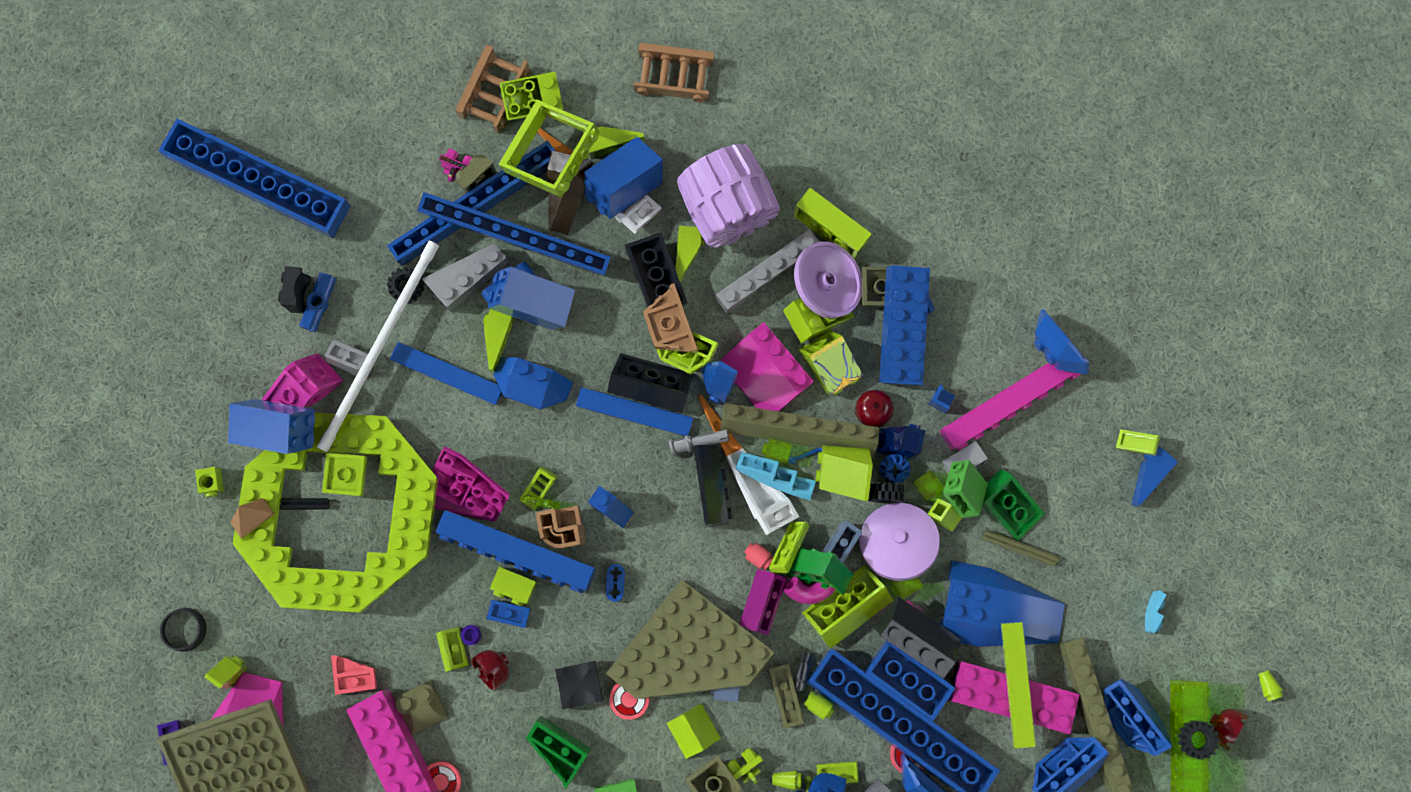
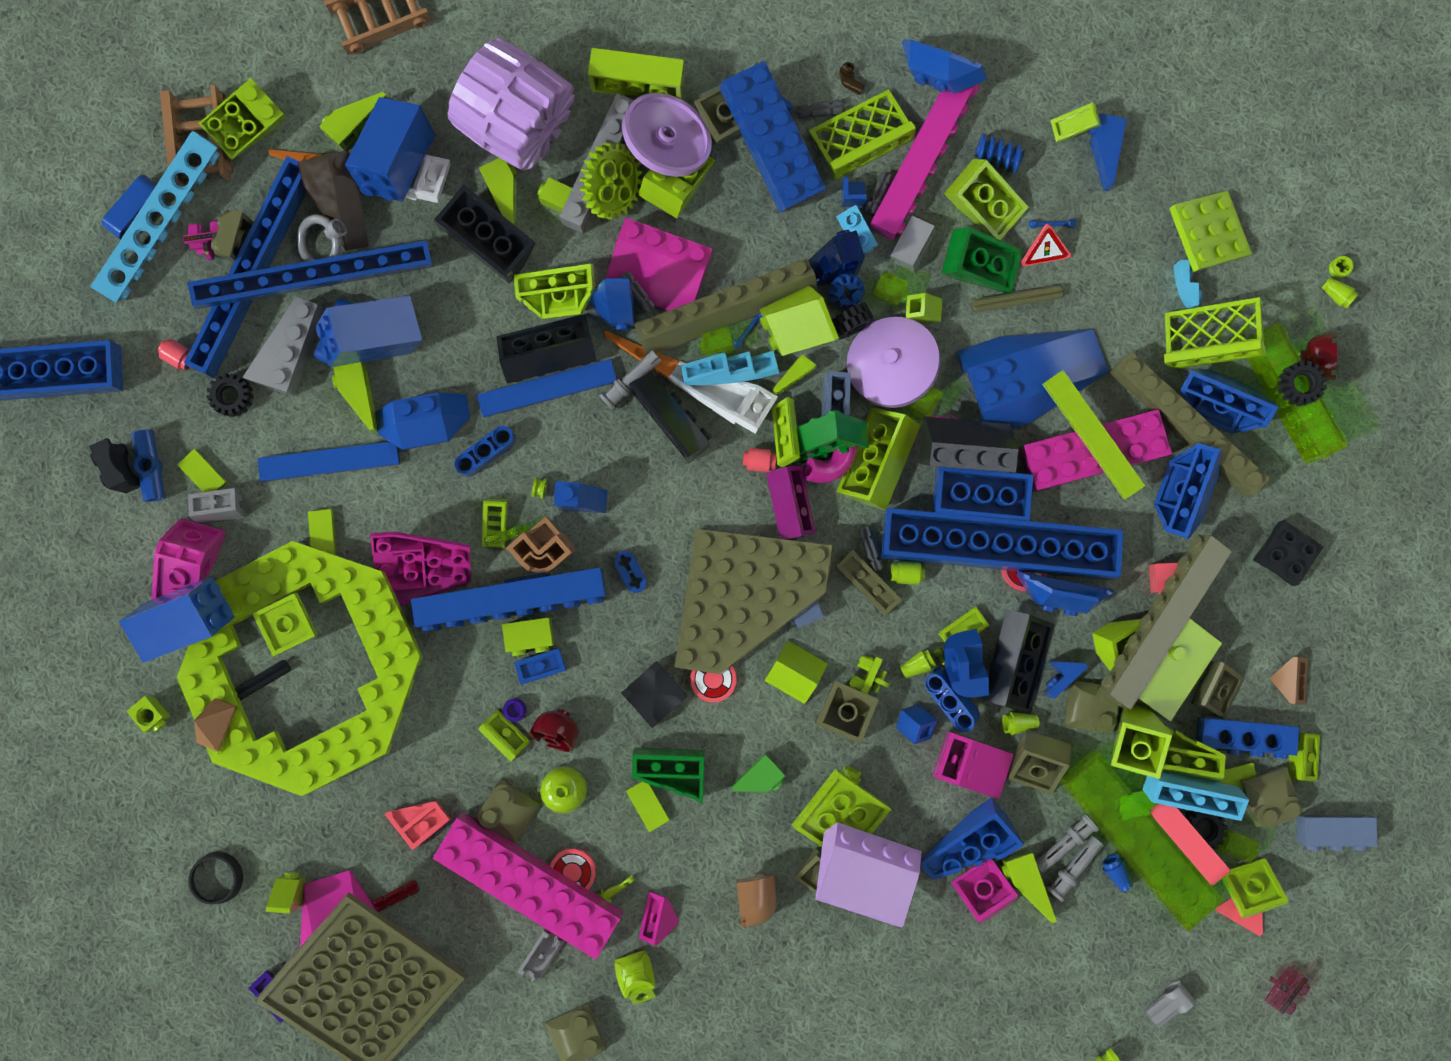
camera: 30 degrees left, 5 degrees up
(303, 721) = (396, 895): none -> dark red axle
(329, 435) = (245, 594): white piece -> none
(352, 329) = (202, 472): none -> lime tile
(367, 156) = (105, 281): none -> medium azure brick
(384, 233) = (174, 354): none -> coral brick
(411, 421) = (322, 530): none -> lime tile
(418, 113) = (128, 205): none -> blue beam
(471, 716) = (563, 789): none -> lime cylinder
(525, 765) = (647, 805): none -> lime tile
(527, 133) = (261, 160): lime window -> none
(537, 543) = (544, 574): none -> clear blue piece
(549, 211) = (333, 230): none -> light grey piece
(553, 428) = (473, 452): none -> blue beam
(585, 482) = (539, 487): none -> lime bush
(669, 323) = (529, 274): medium nougat wing -> none
(722, 275) = (554, 194): none -> lime brick
(741, 383) = (639, 293): none -> dark grey axle
(768, 289) = (610, 180): none -> lime gear
(823, 507) = (799, 370): none -> lime slope
(831, 362) = (719, 219): lime slope -> none
(874, 408) = (790, 242): dark red cylinder -> none
(929, 421) = (853, 220): none -> medium azure hinge
(952, 323) = (820, 109): none -> dark grey axle
(960, 410) = (879, 193): none -> dark grey axle
(965, 488) = (929, 268): bright green brick -> none
(974, 375) = (874, 147): none -> lime fence
(986, 313) = (848, 80): none -> dark brown arm
(1038, 460) = (986, 198): none -> lime slope
(1062, 522) = (1046, 248): none -> piece
(1067, 432) = (999, 153): none -> blue piece
(1092, 514) = (1071, 223): none -> blue hinge
(1150, 678) = (1221, 351): none -> lime fence
(1195, 582) = (1210, 231): none -> lime plate
(1275, 667) = (1346, 263): none -> lime bush

